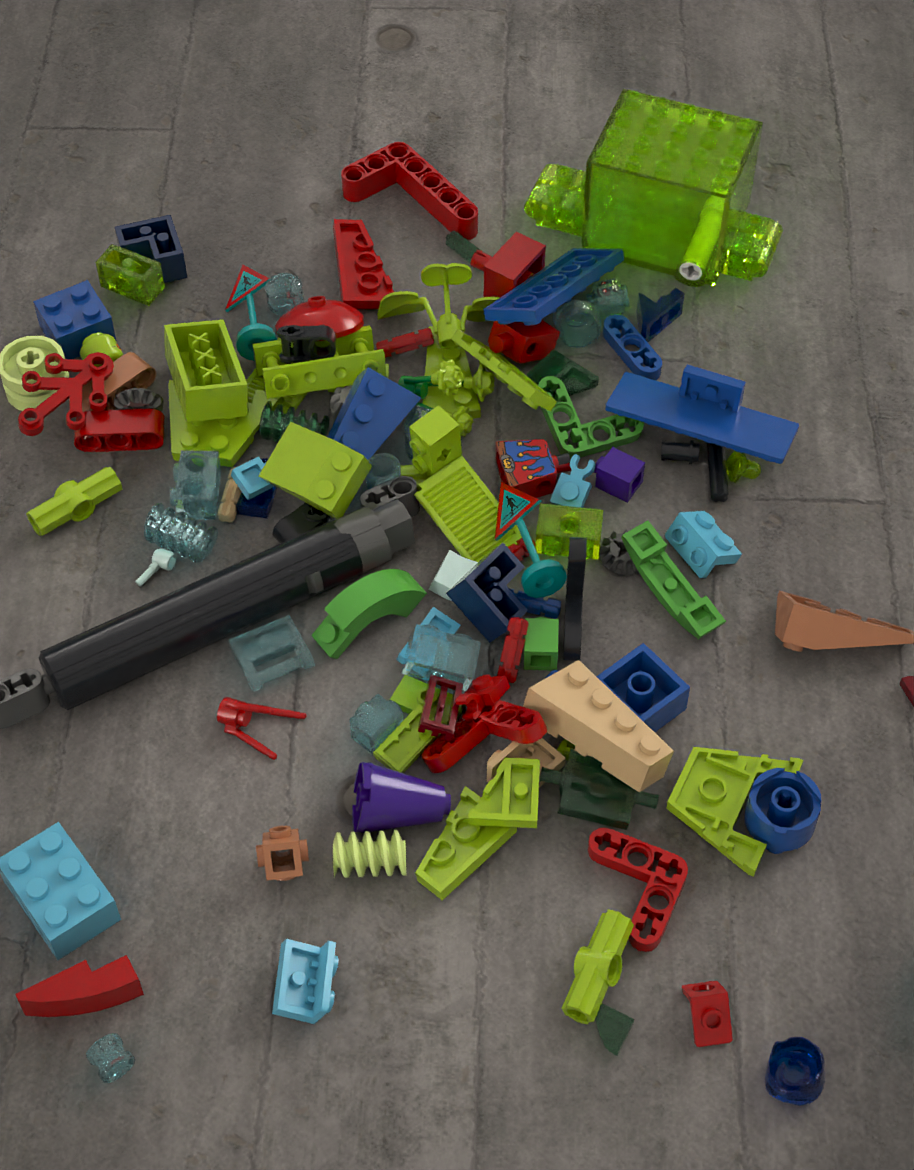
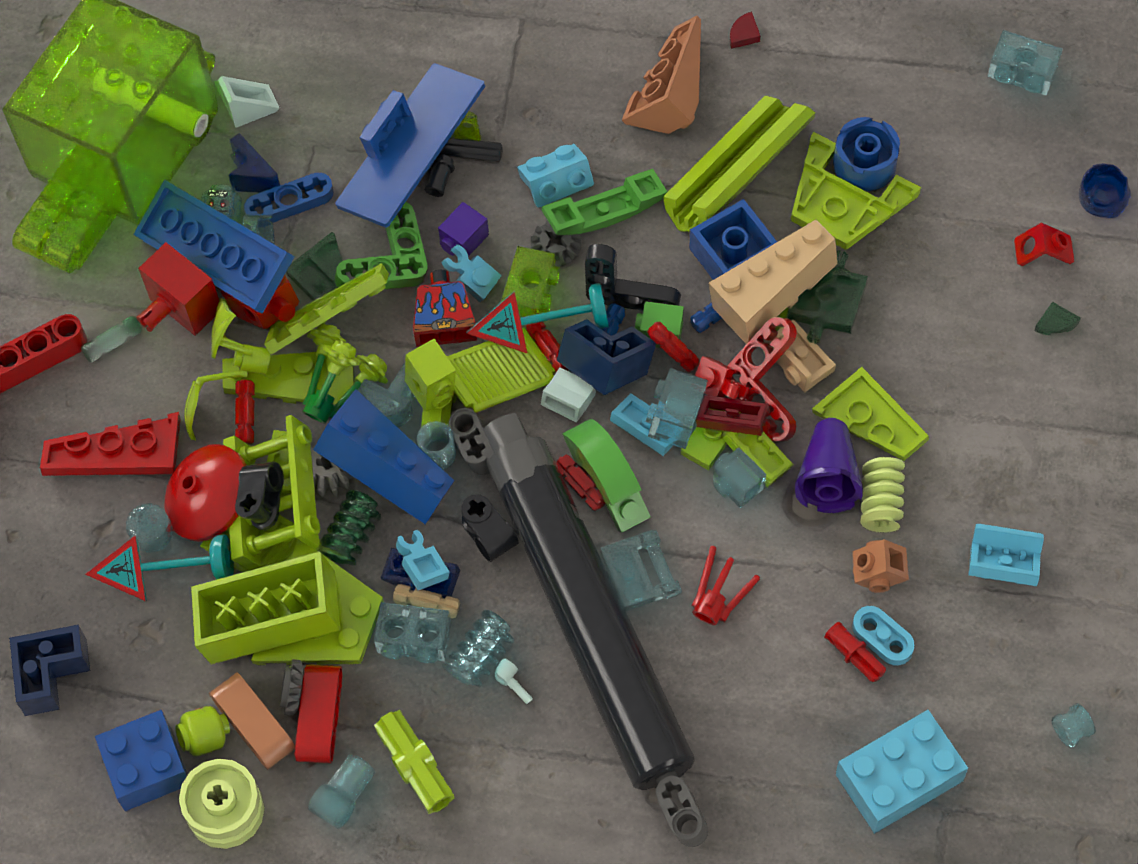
camera: 80 degrees left, 10 degrees up
(44, 453) = (337, 799): none -> clear light blue piece
(66, 389) = (272, 753): red plant -> none
(82, 990) = (1004, 748): red slope -> none
(130, 274) = (84, 694): clear neon green brick -> none
(192, 845) = (855, 652): none -> red axle
(207, 869) = (884, 636): none -> medium azure plate
(316, 470) = (445, 494): lime slope -> none
(510, 796) = (838, 364): lime wing -> none
(597, 967) = (1005, 320): lime piece -> none
(656, 881) = (921, 267): red beam -> none
(729, 297) = (246, 99): none -> light aqua slope
(755, 695) = (734, 161): none -> lime piece

